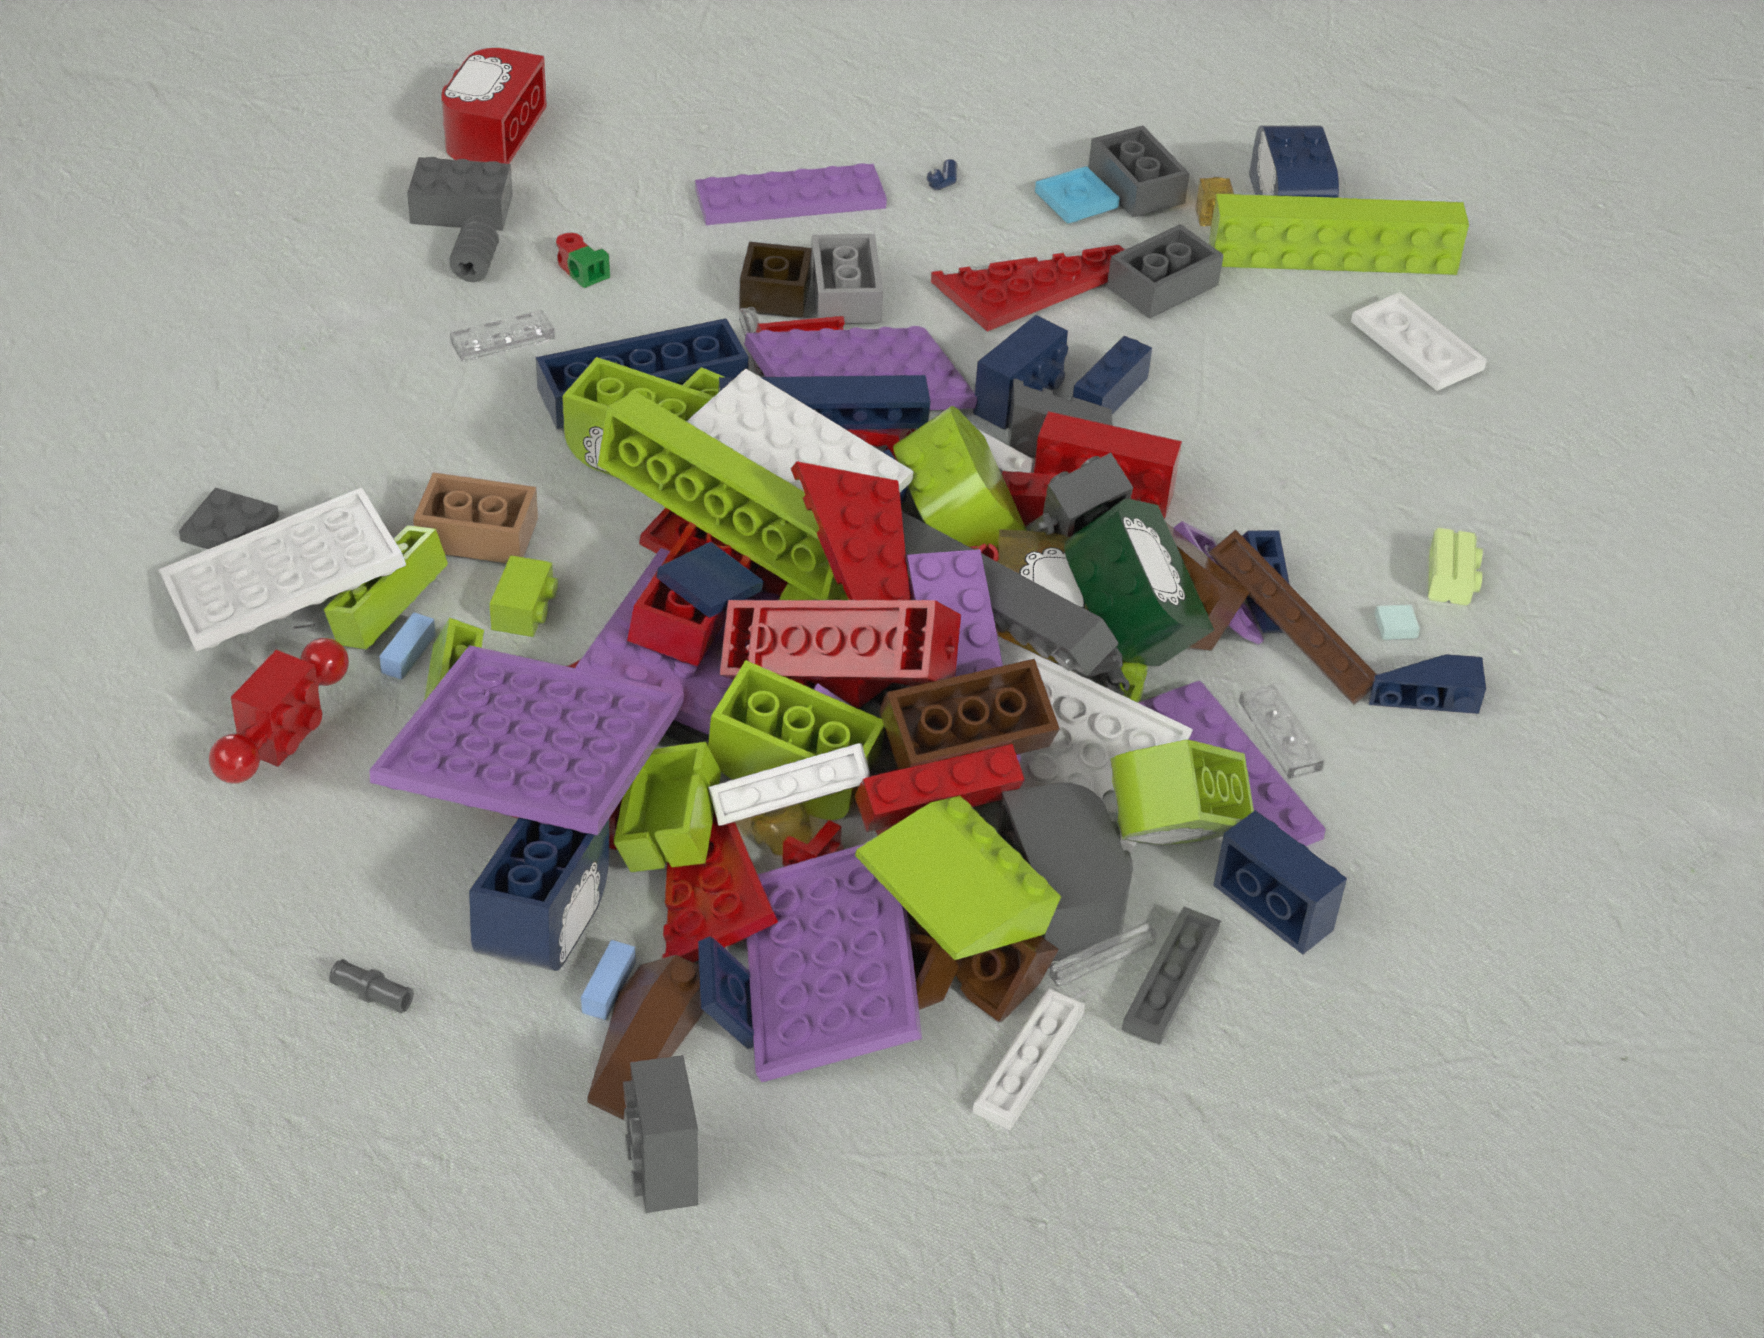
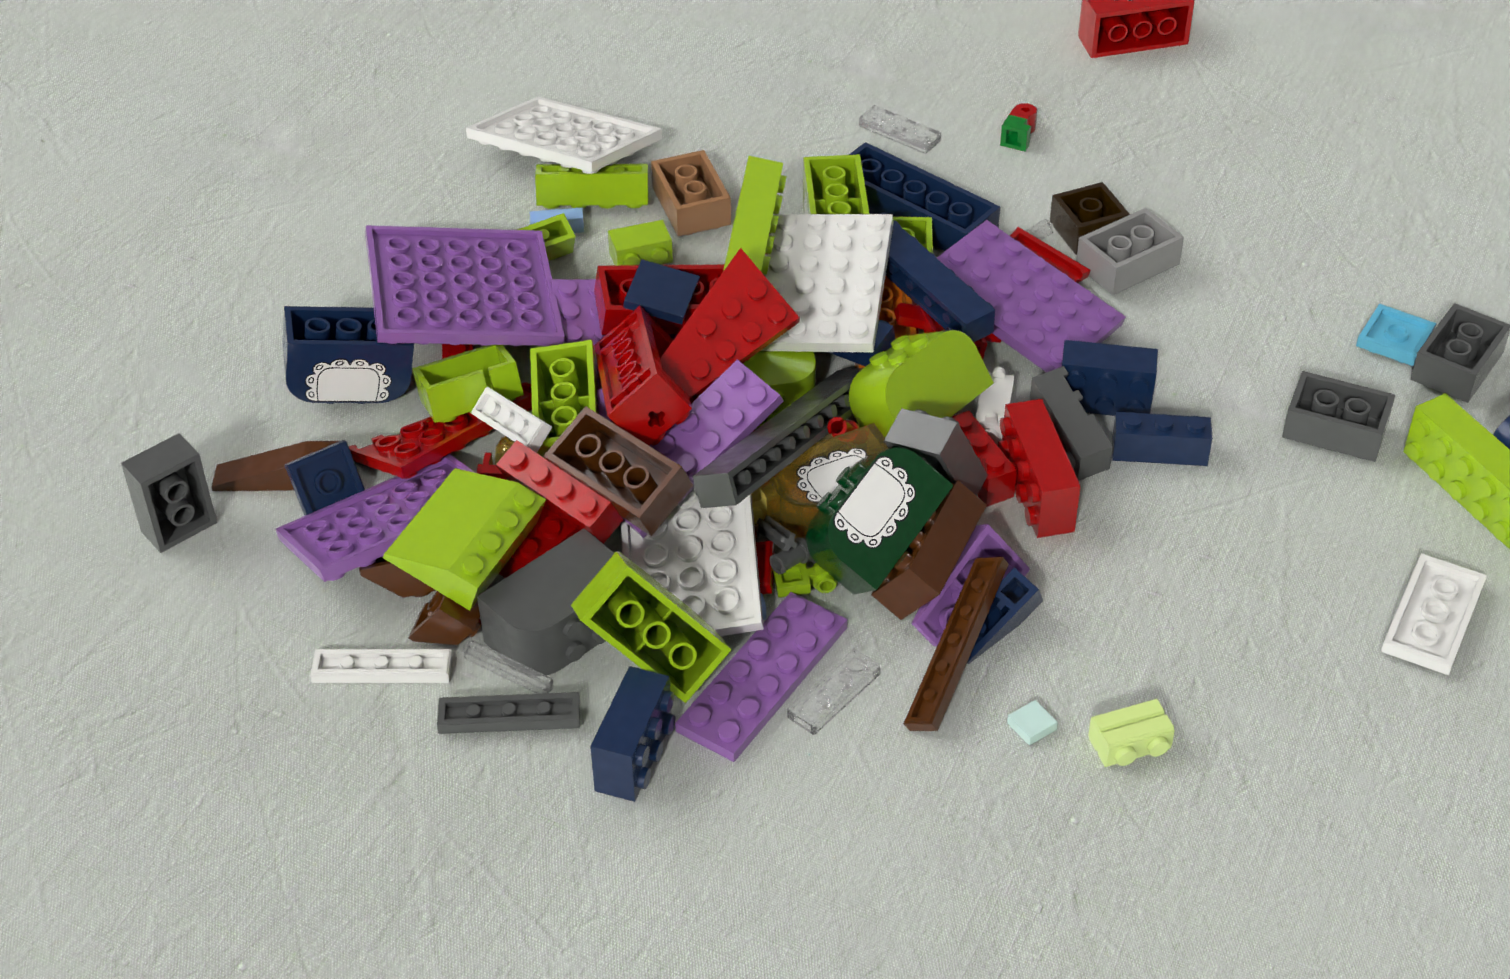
camera: 65 degrees right, 0 degrees up
(226, 517) = (612, 100): dark grey plate -> none
(277, 709) = (440, 188): red brick -> none
(371, 985) = (248, 333): dark grey pin -> none
(452, 190) = (1028, 46): dark grey brick -> none
(474, 248) = (972, 75): dark grey piece -> none
(608, 979) = (321, 429): light blue piece -> none
(790, 194) = (1219, 192): medium lavender plate -> none
(943, 179) = (1336, 260): dark blue arm -> none
(1024, 285) = (1237, 348): red wing -> none
(1206, 197) = (1484, 408): clear yellow brick -> none
(1435, 684) = (967, 770): dark blue slope -> none

